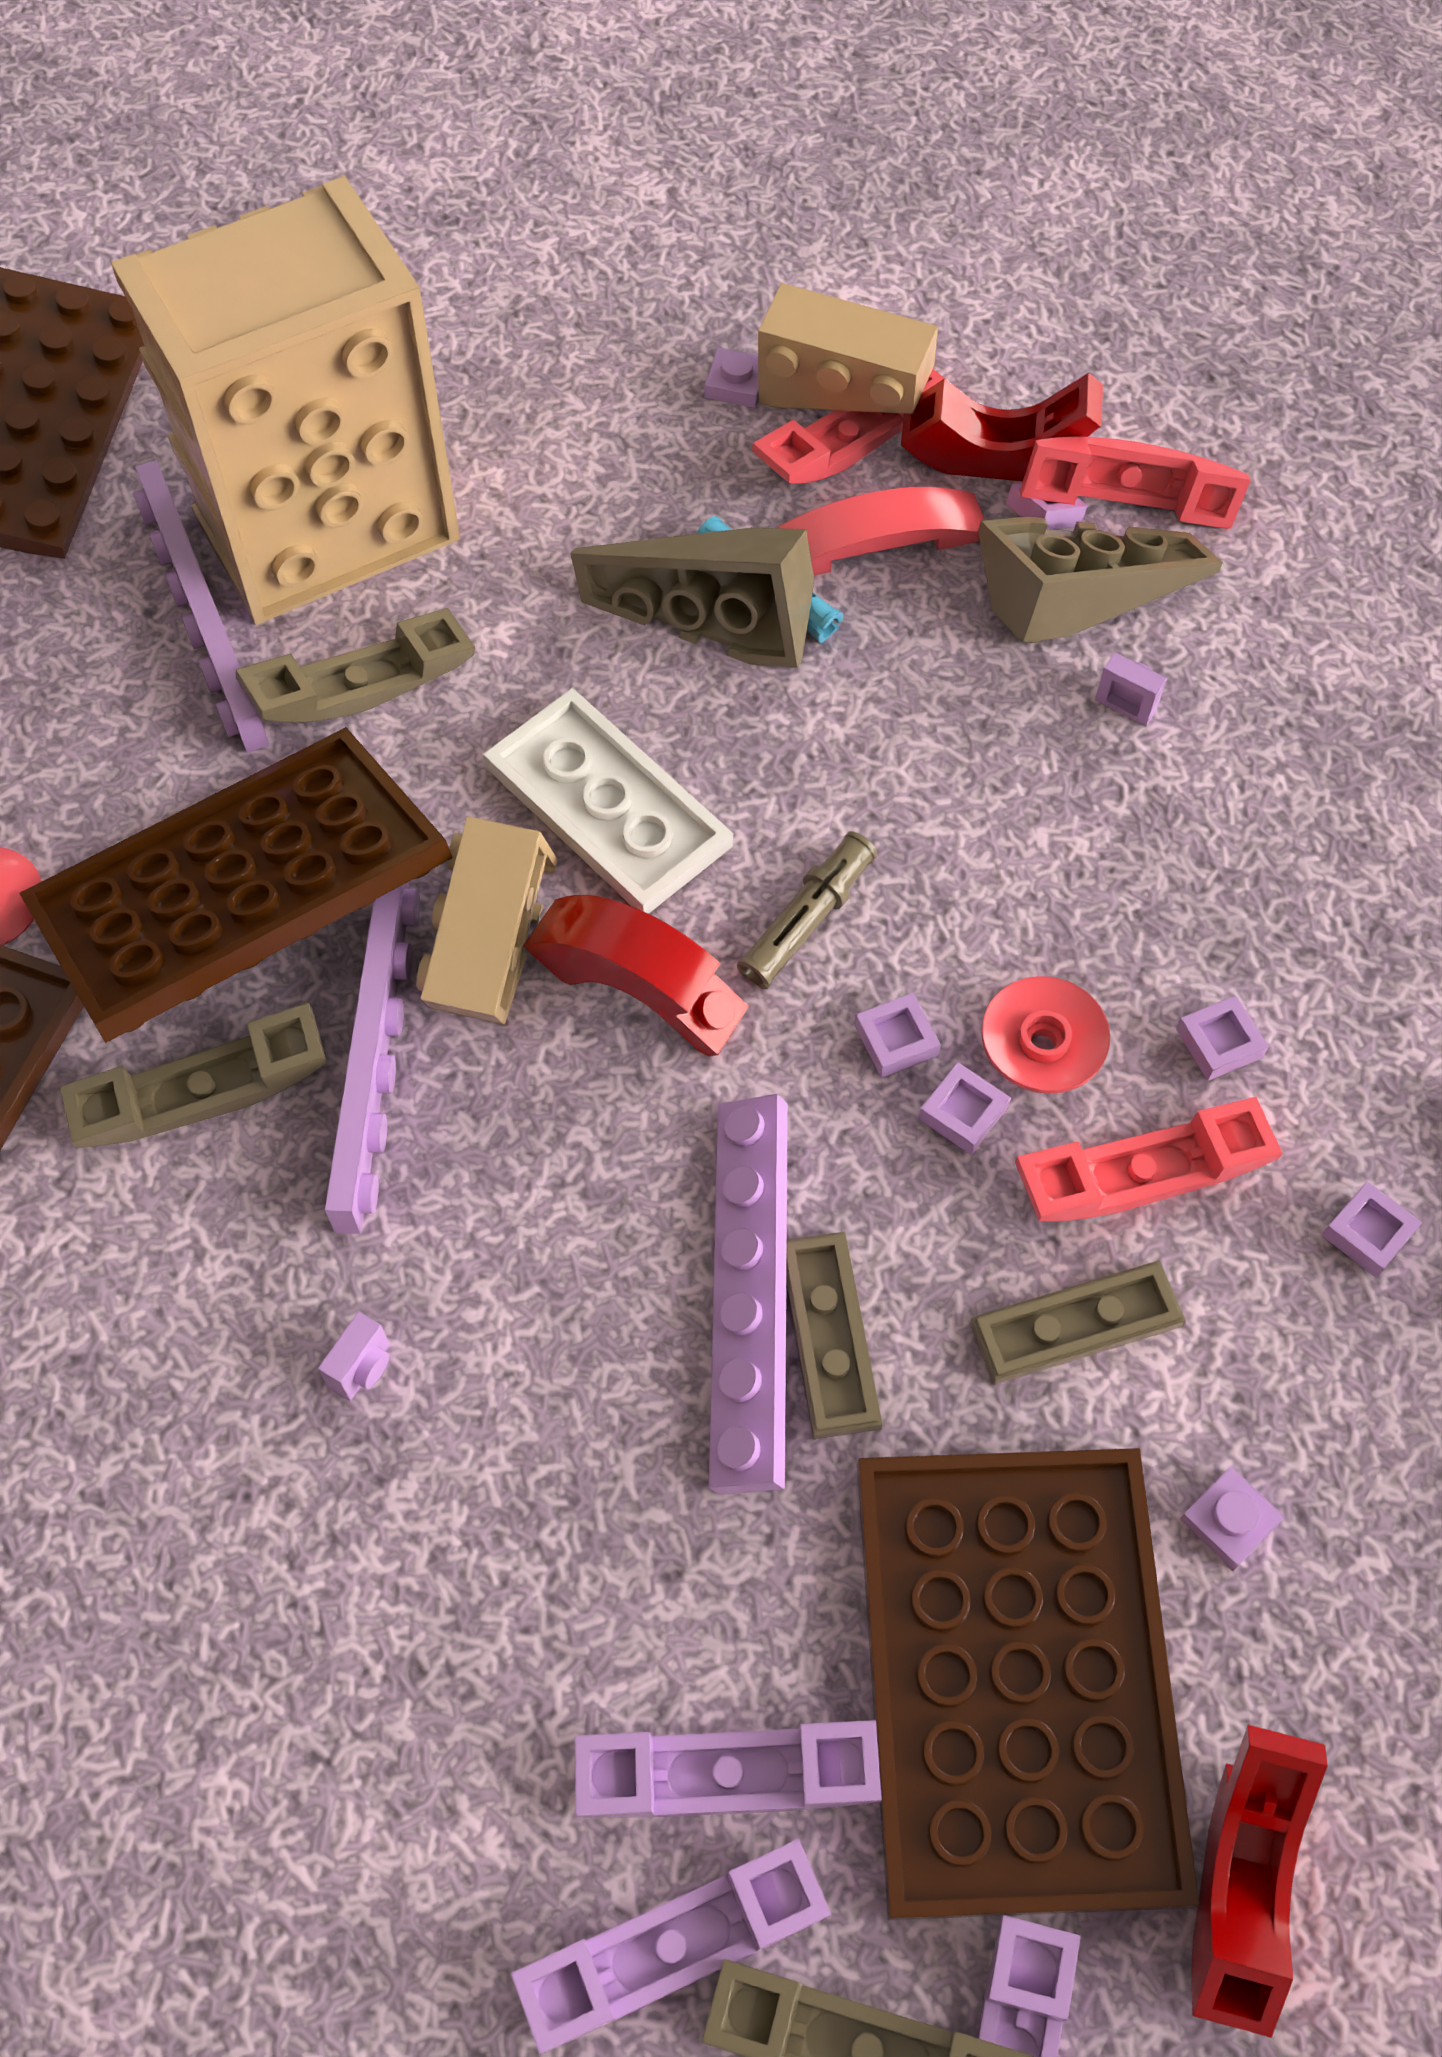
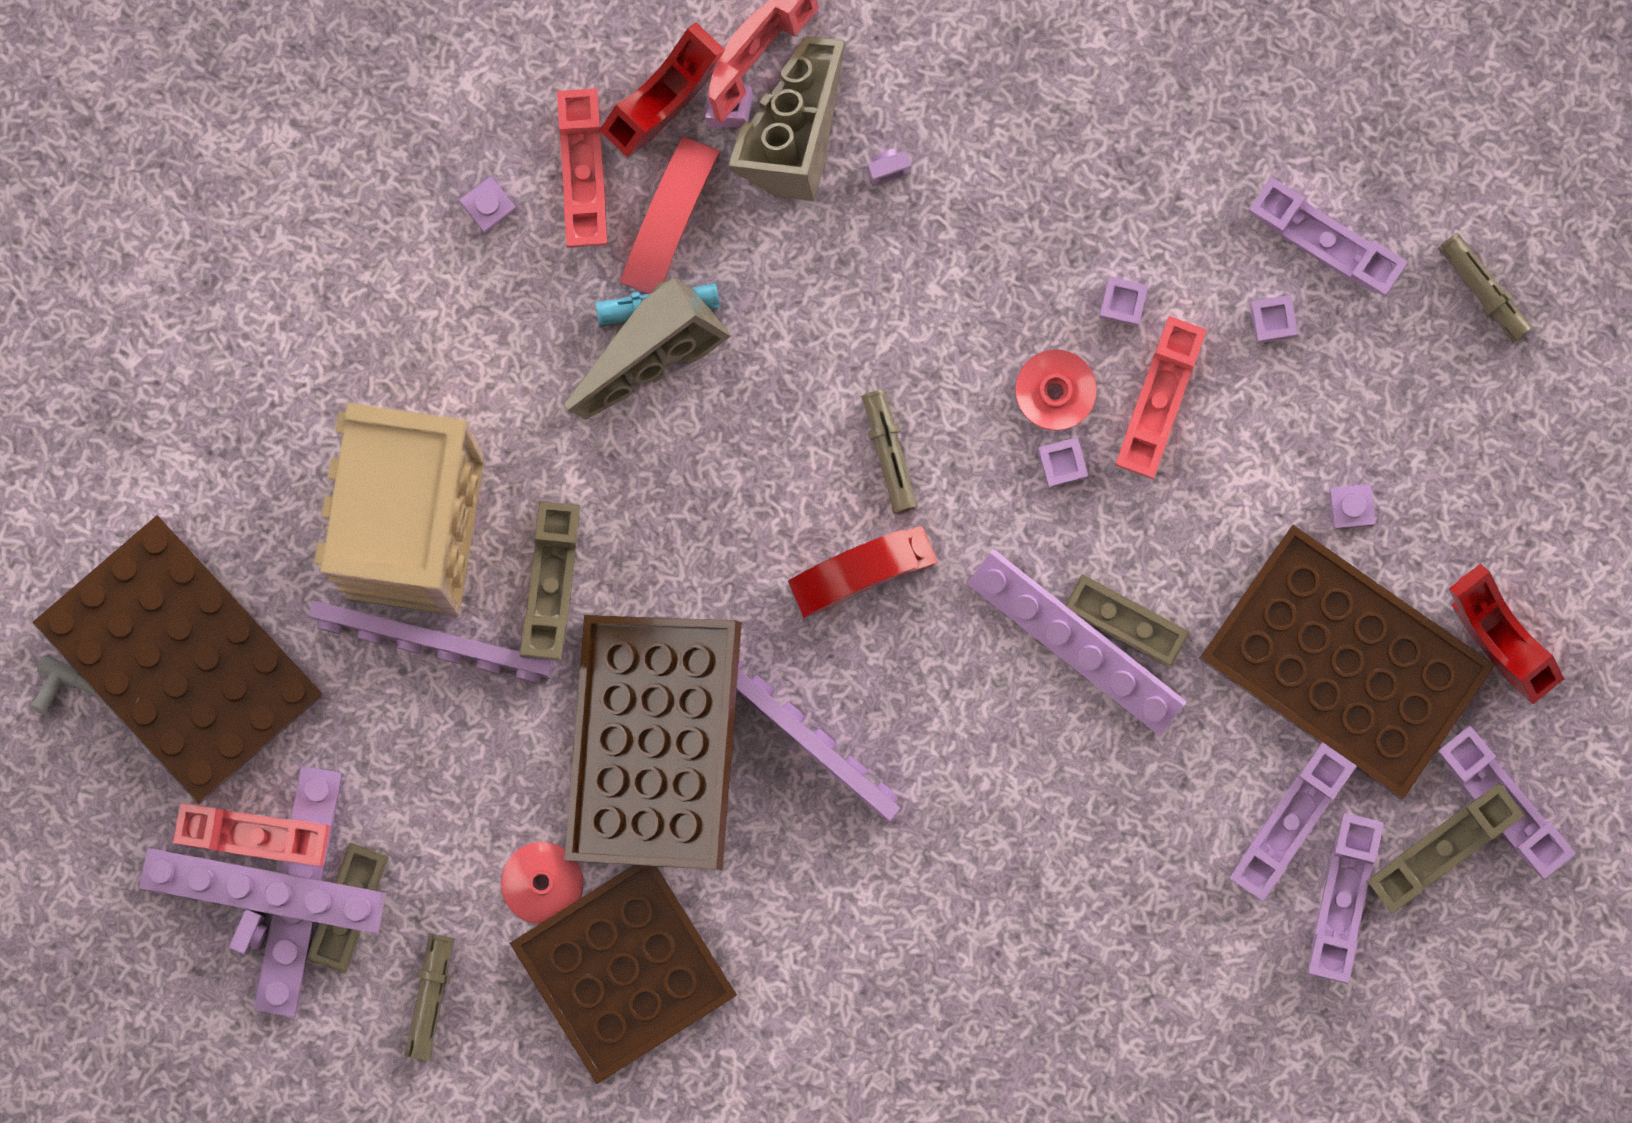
camera: 55 degrees left, 20 degrees up
(211, 1083) = (755, 837): dark tan slope -> none
(356, 1357) = (973, 855): lavender plate -> none
(484, 919) = (777, 626): tan wedge -> none
(608, 801) = (740, 506): white plate -> none
(841, 355) = (552, 146): tan wedge -> none
(897, 1035) = (997, 463): lavender plate -> none
(1077, 1322) = (1209, 498): dark tan tile -> none

